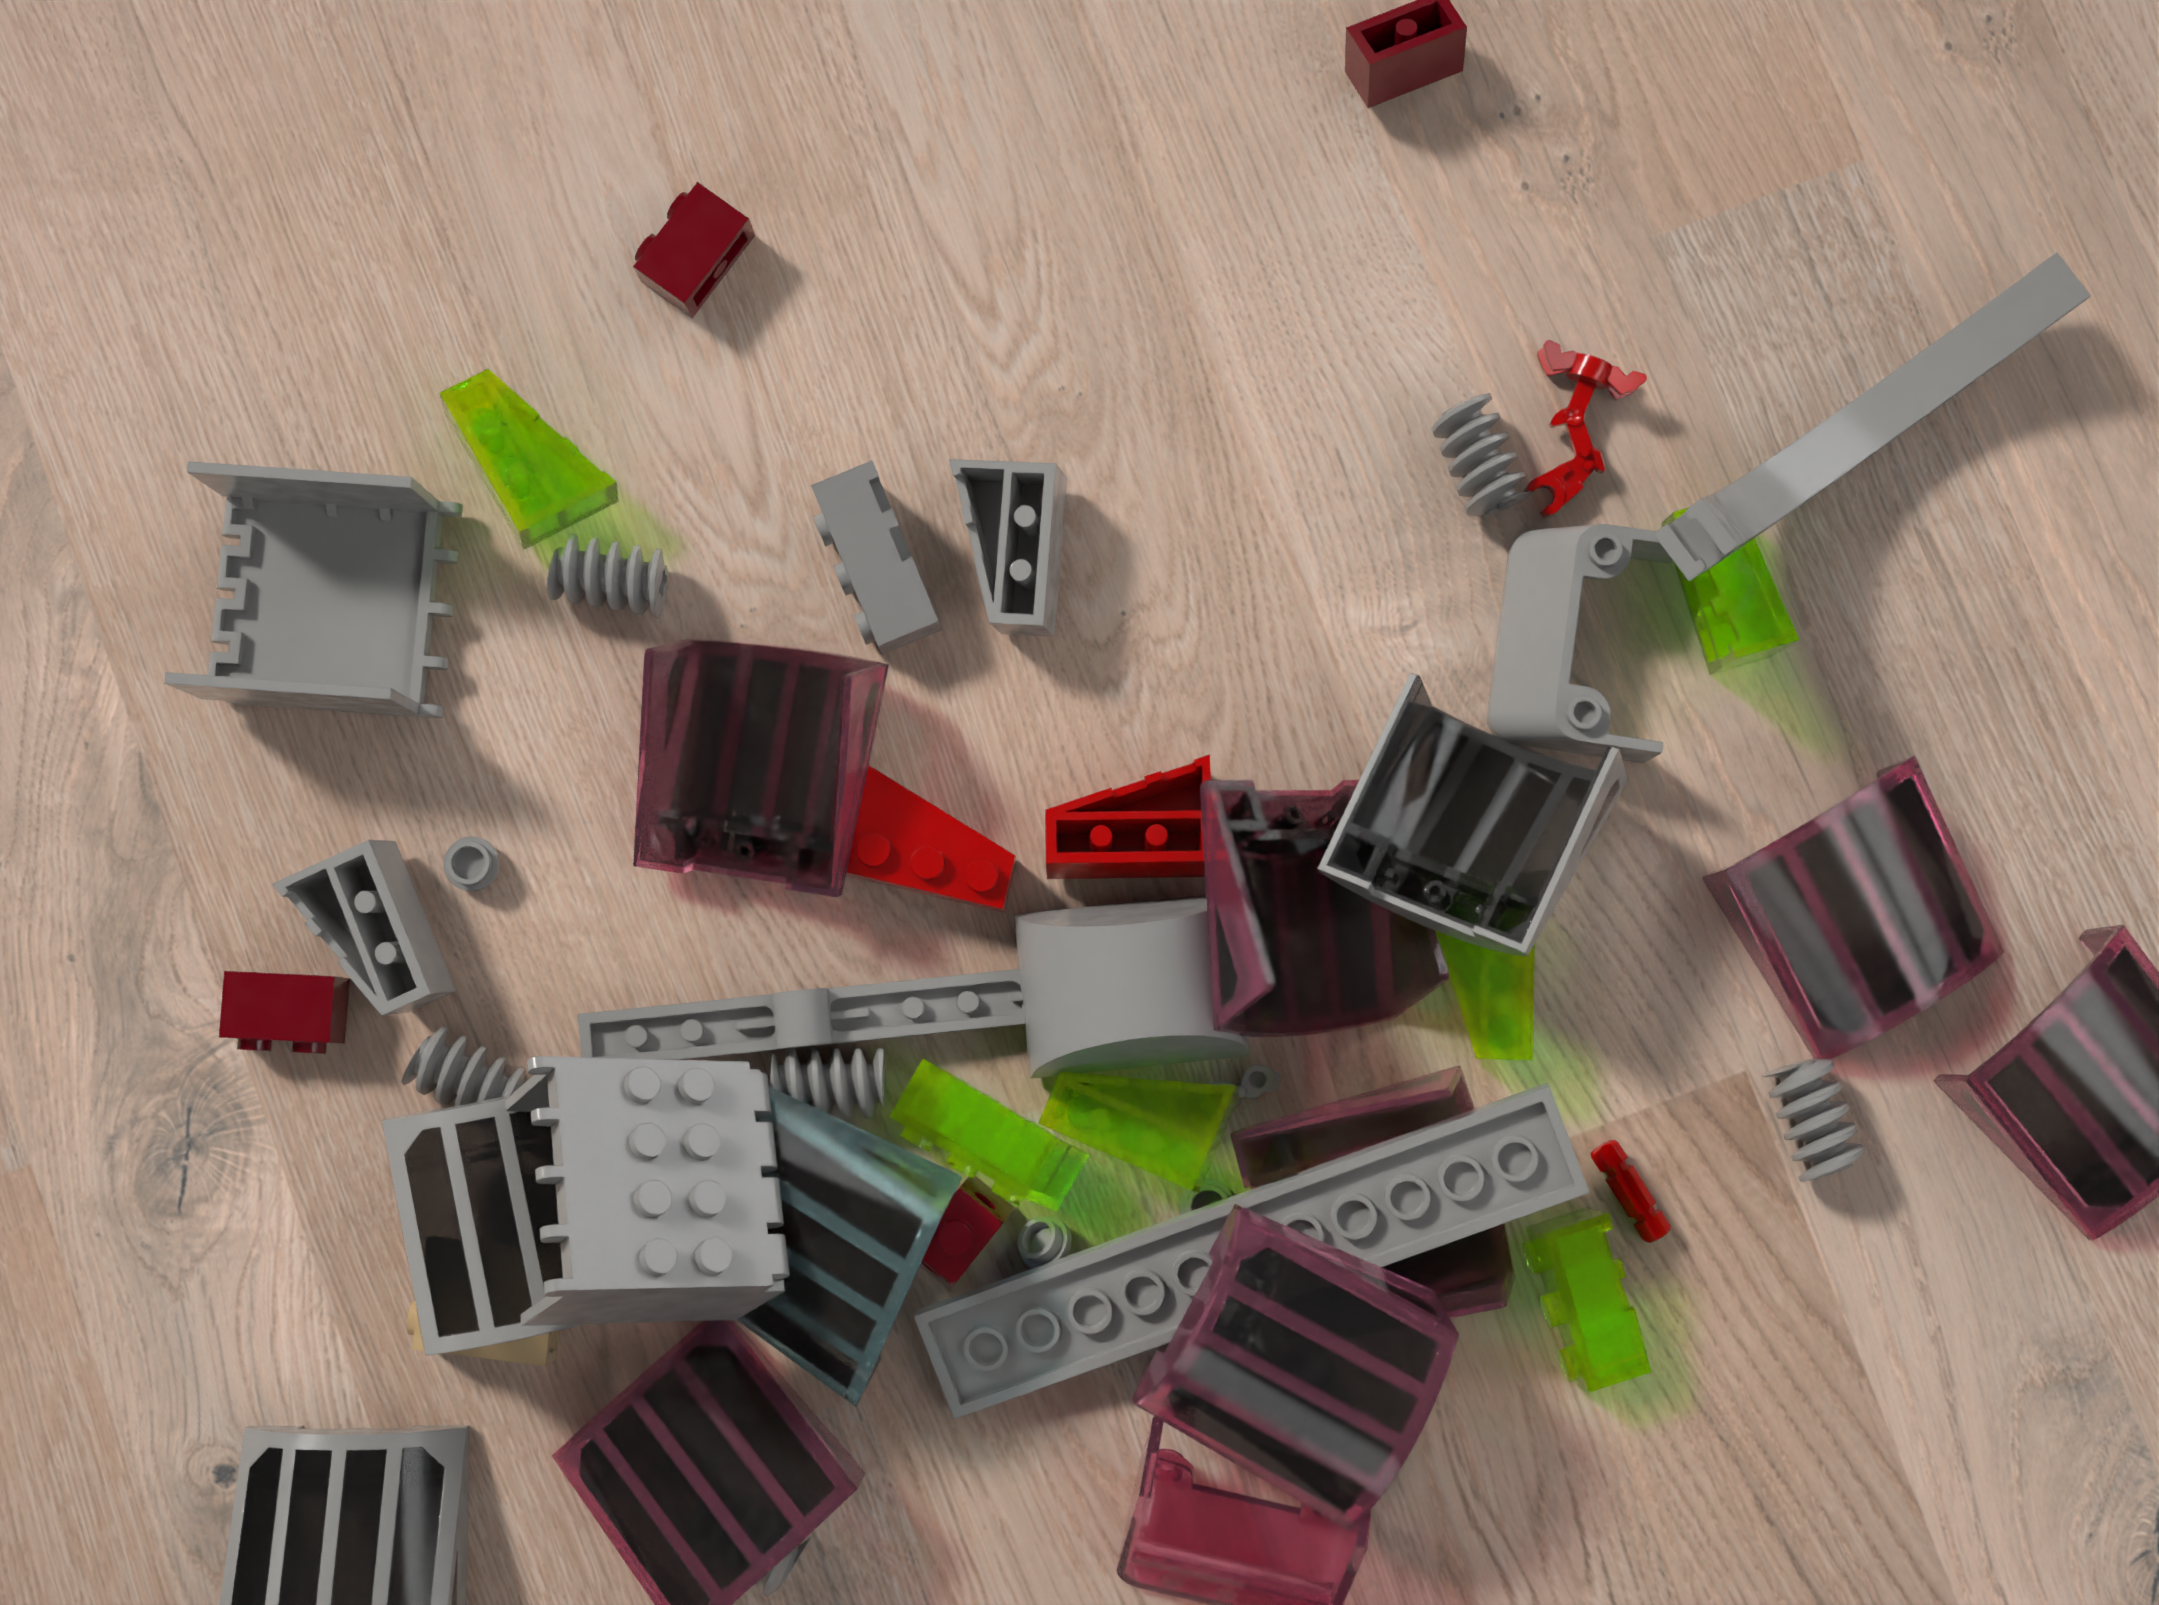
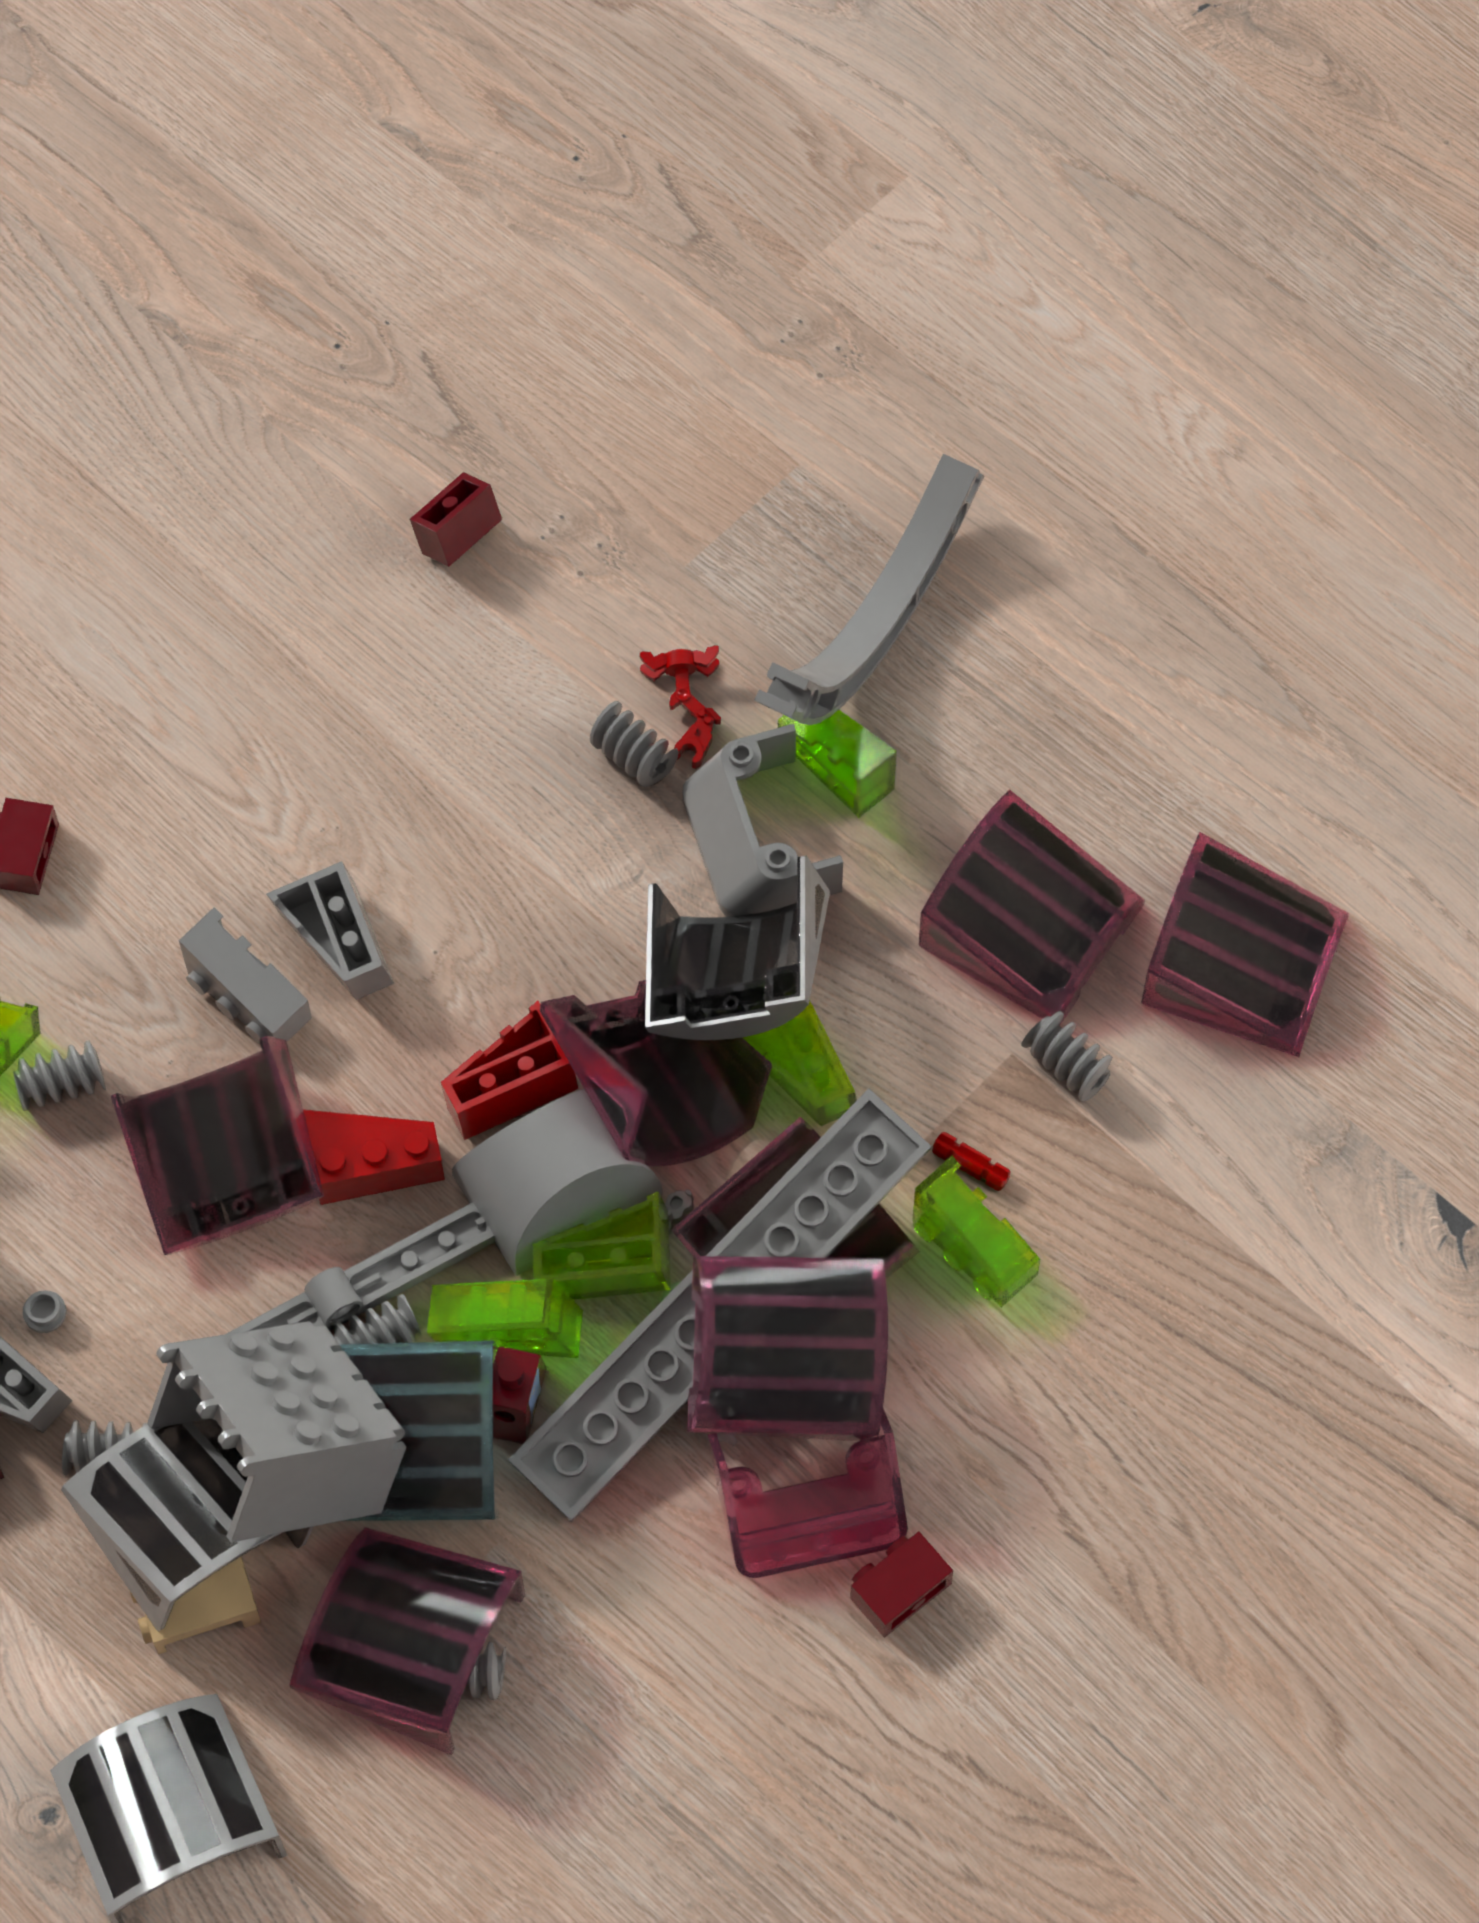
camera: 25 degrees left, 20 degrees down
(1044, 1241) = (575, 1372): light grey plate -> none

